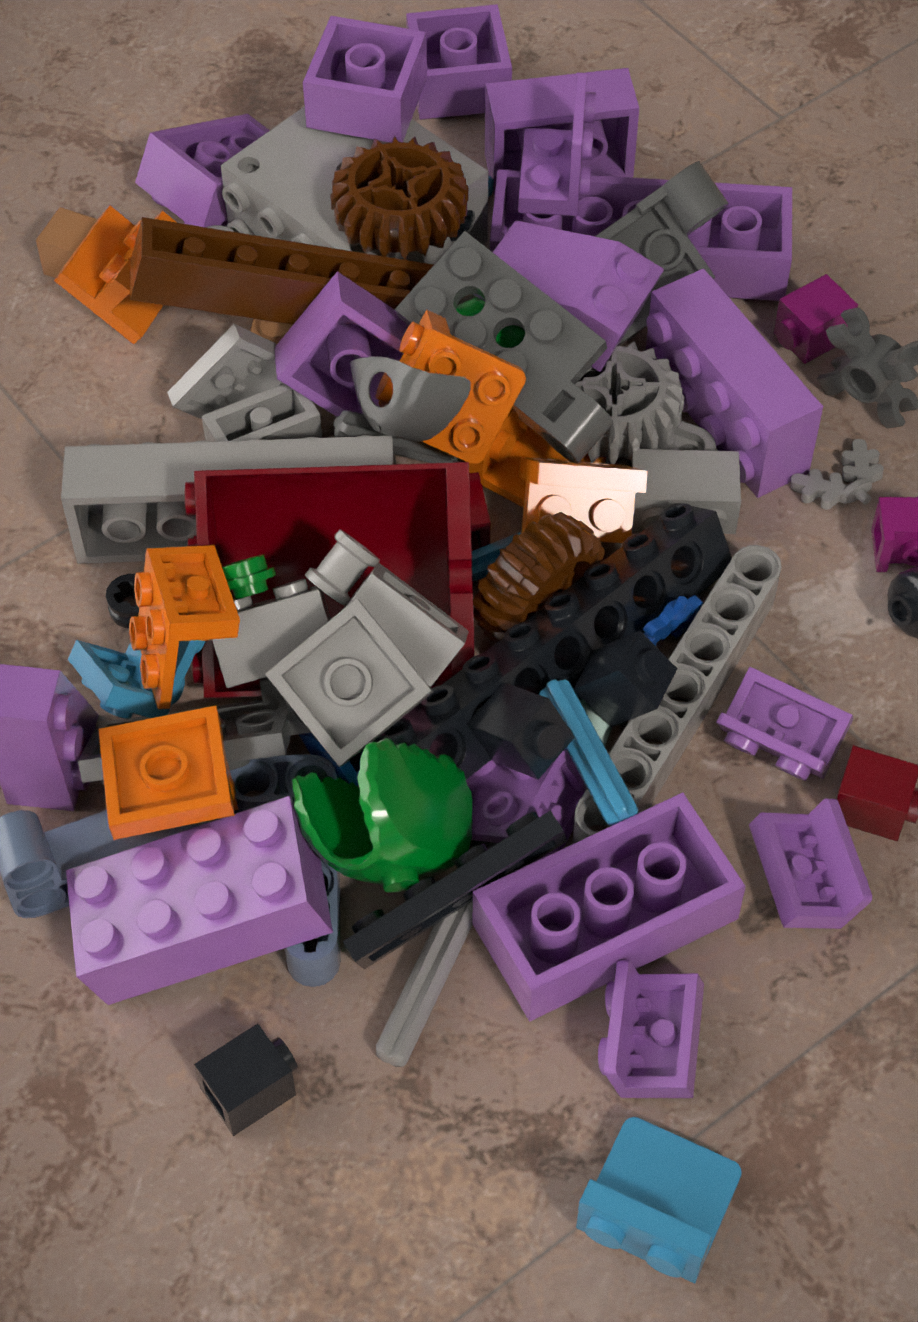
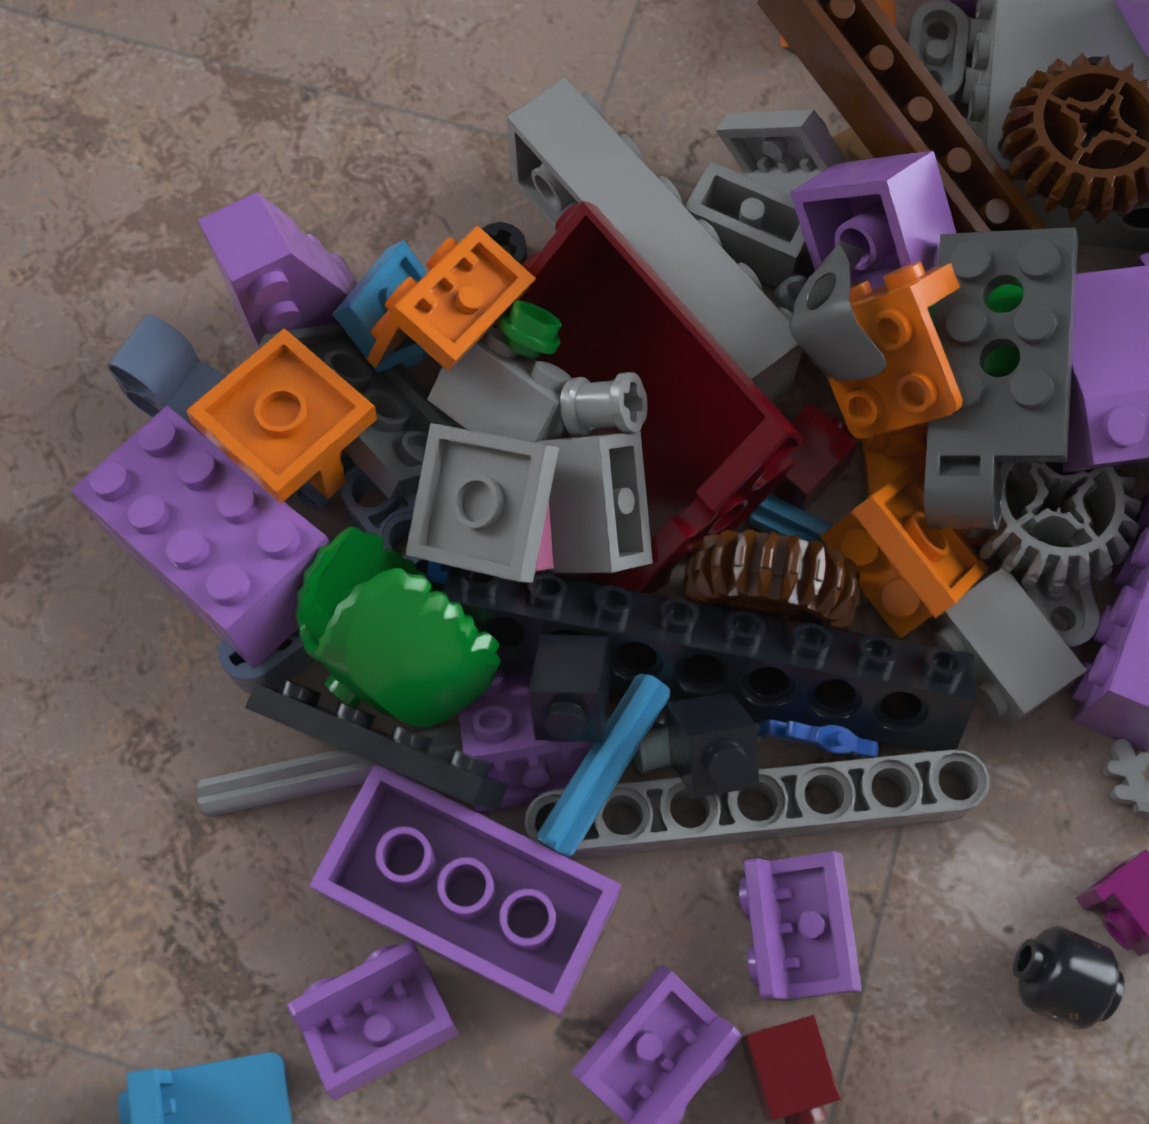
camera: 55 degrees right, 15 degrees up
(247, 1078) = (94, 694): black brick -> none

